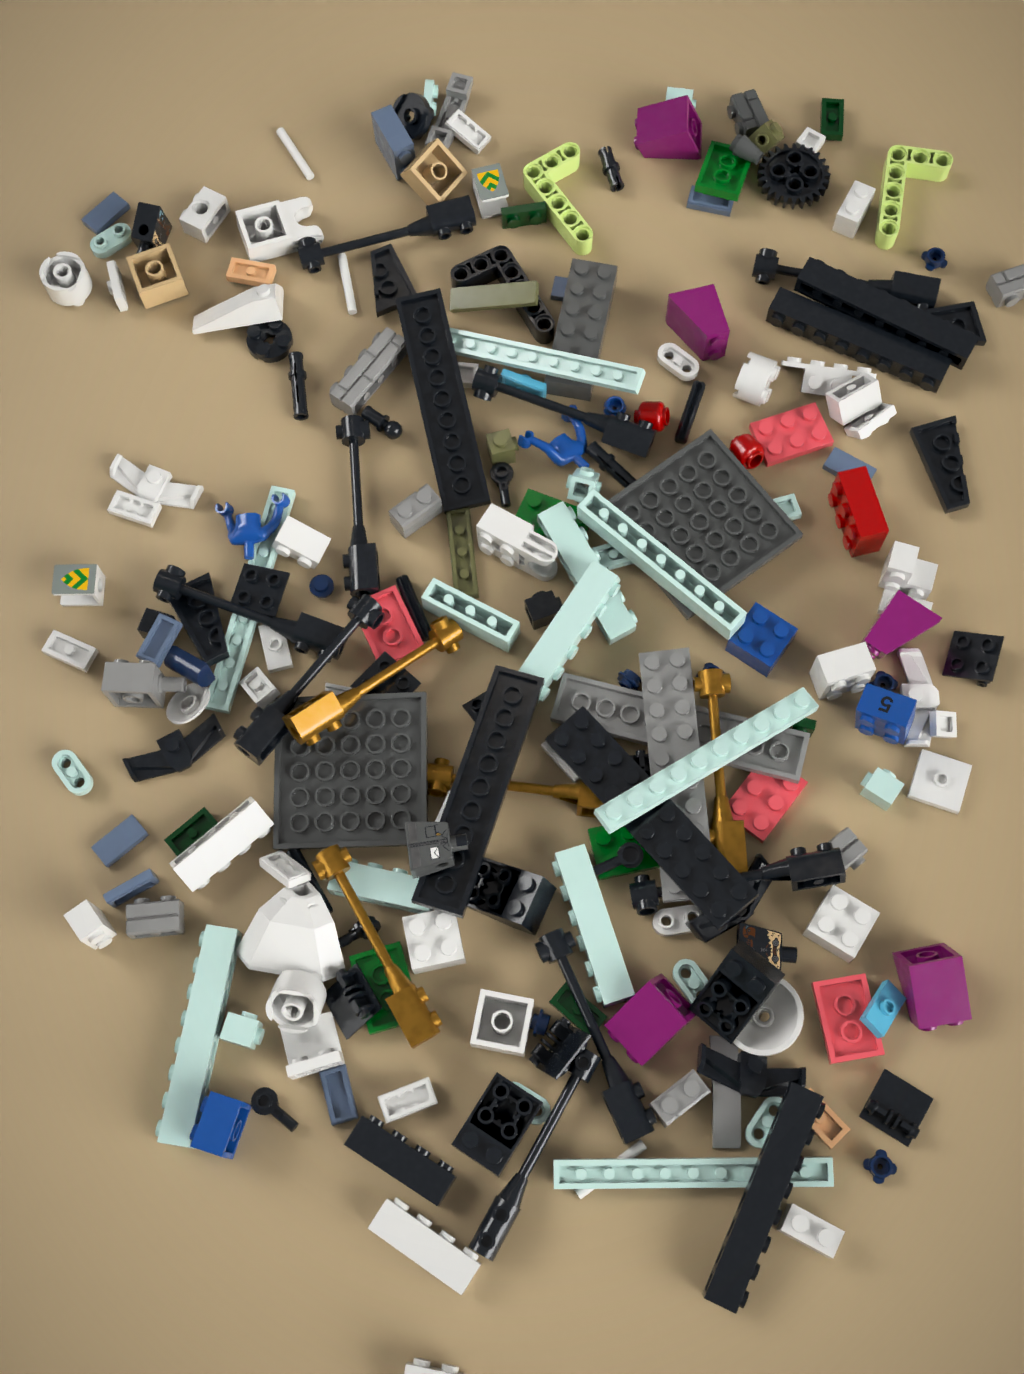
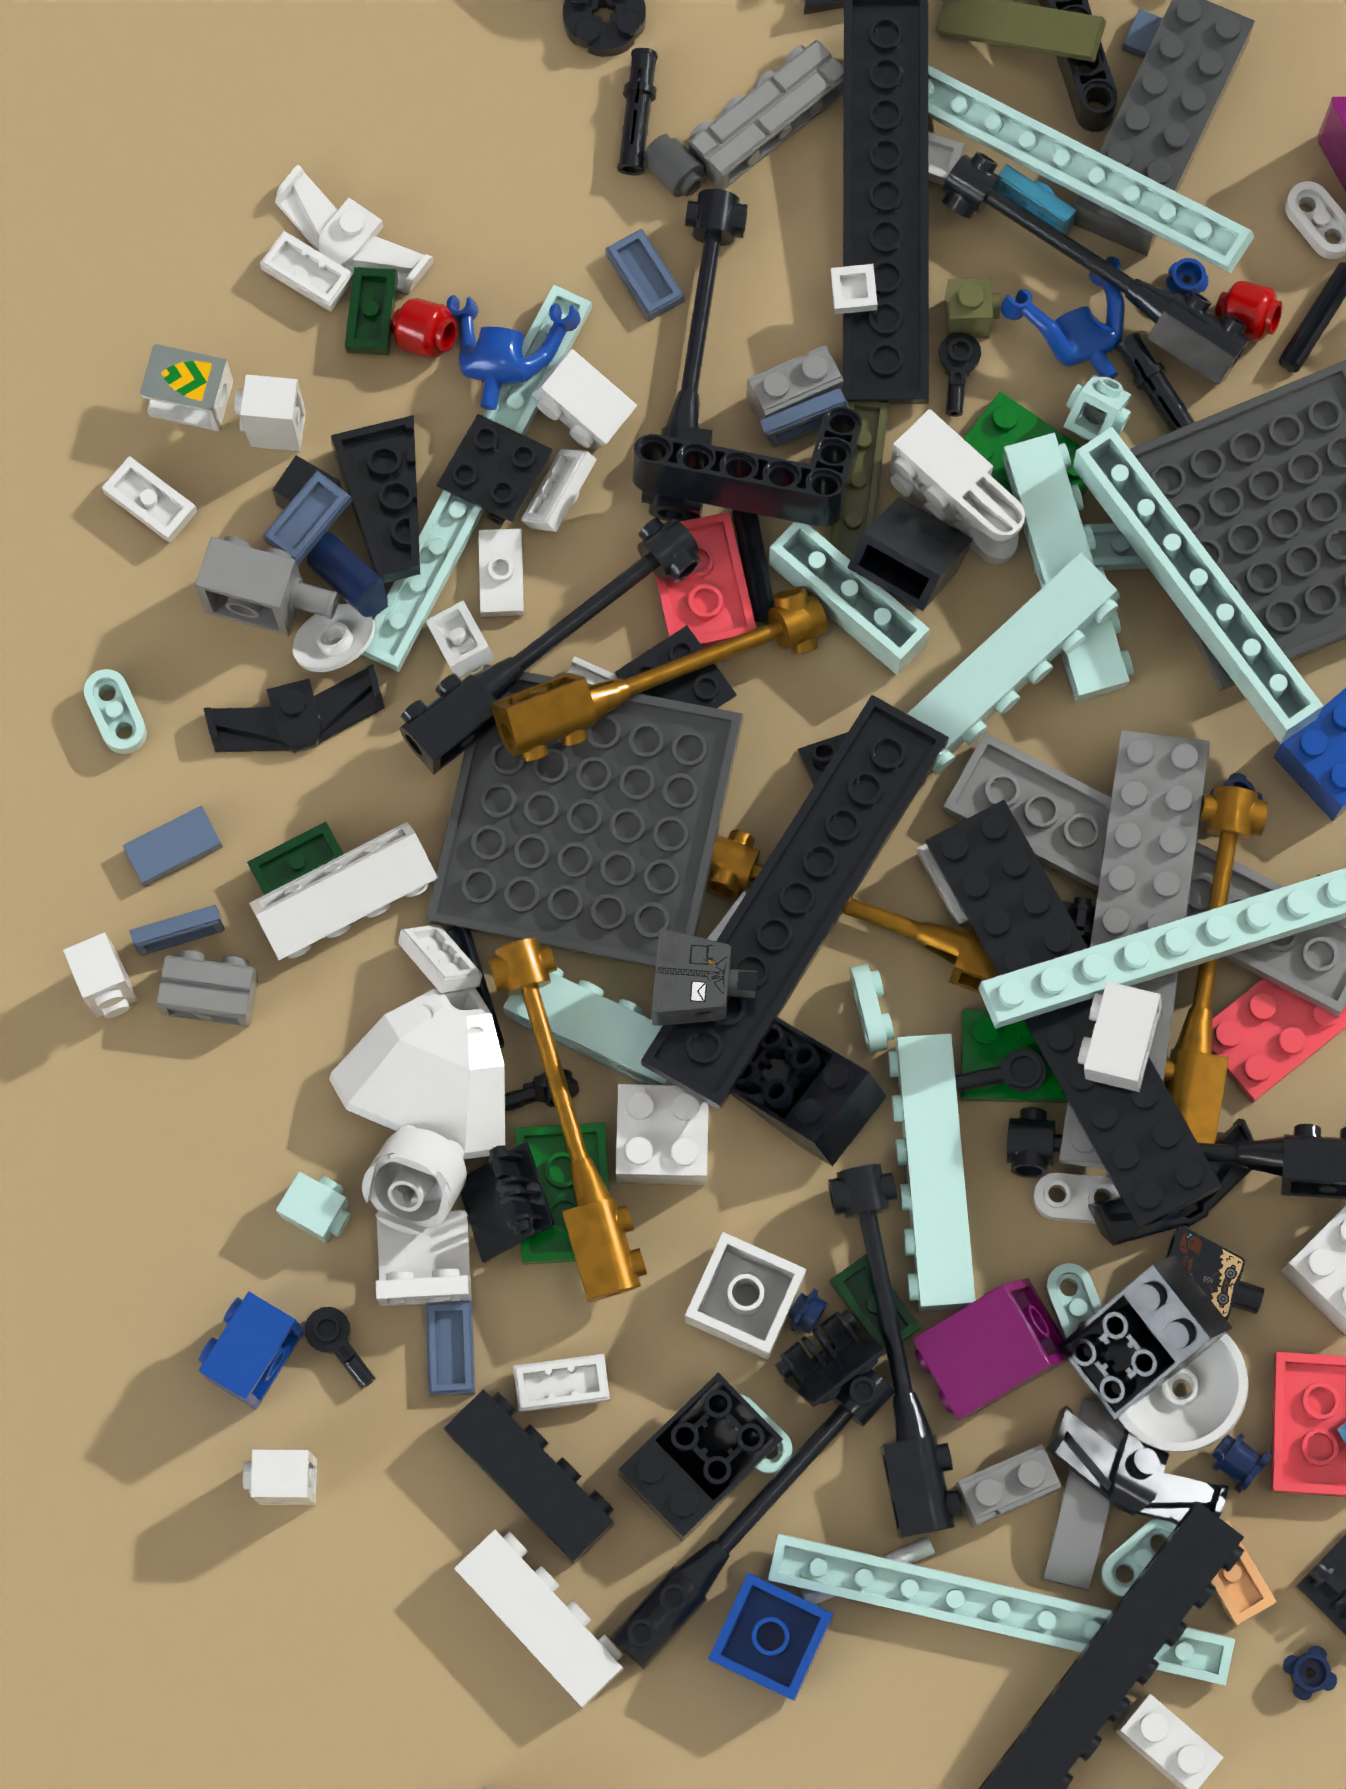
camera: 10 degrees right, 5 degrees up
(128, 587) = (271, 412): none -> white brick
(174, 522) = (371, 311): none -> dark green plate
(200, 1034) = (244, 1197): light aqua brick -> none
(205, 524) = (424, 328): none -> red head
(254, 1197) = (281, 1477): none -> white brick
(298, 594) = (558, 490): none -> white plate
(306, 633) = (559, 562): black bar -> none
(321, 470) = (645, 275): none -> sand blue tile
(321, 586) = (603, 485): dark blue plate -> none
(324, 409) = (674, 166): none -> dark grey brick
(391, 429) = (785, 229): black pin -> none
(404, 564) = (752, 481): none -> black beam
(425, 525) = (801, 418): none -> sand blue tile
(436, 450) = (854, 289): none -> white plate
(499, 584) = (910, 553): none -> black brick
(531, 830) = (866, 989): none -> light aqua plate
(542, 608) = (975, 612): black brick -> none
(563, 1224) = (771, 1636): none -> blue brick
(629, 679) = (1094, 771): dark blue plate -> none
(681, 822) = (1121, 1036): none -> white brick
(807, 1051) = (1239, 1461): none -> dark blue brick

